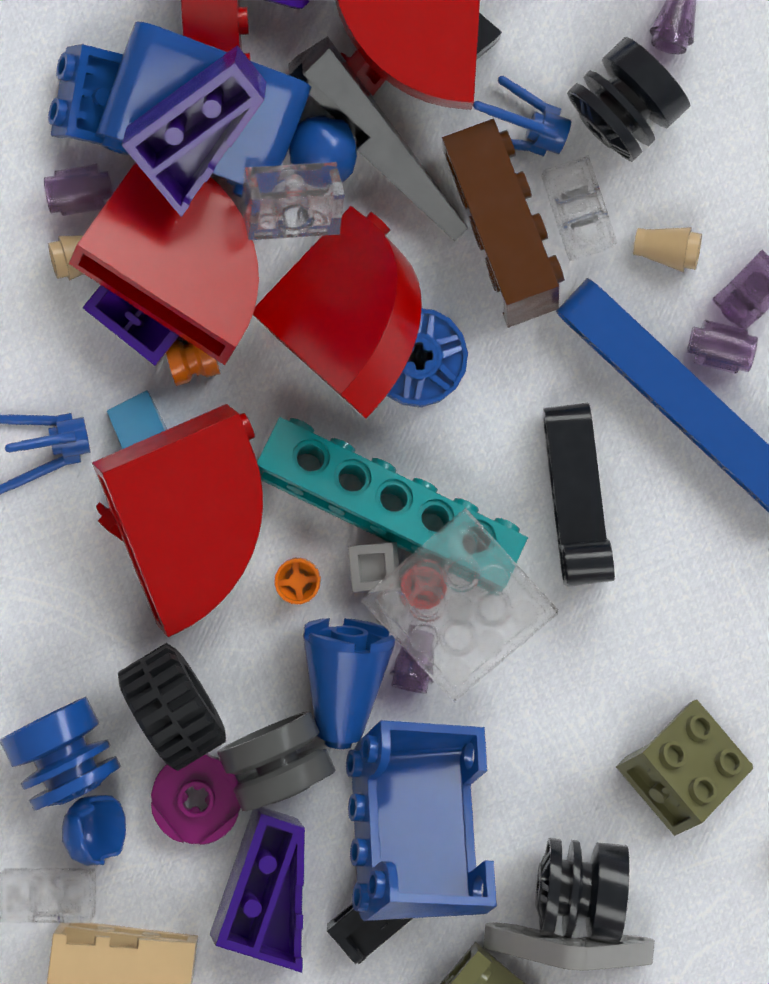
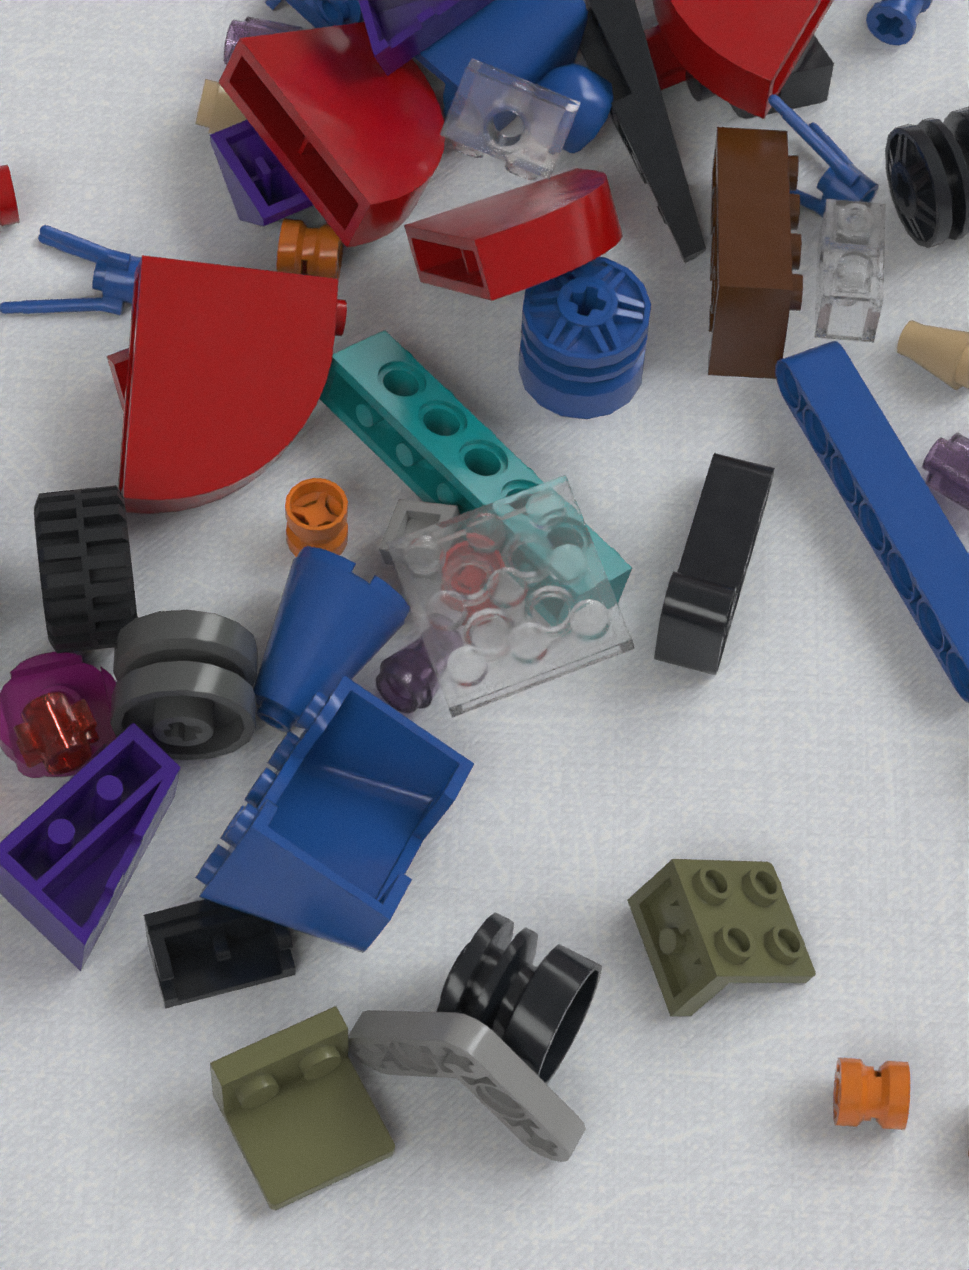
camera: 20 degrees right, 30 degrees down
(212, 834) = (56, 733): none -> clear red gear

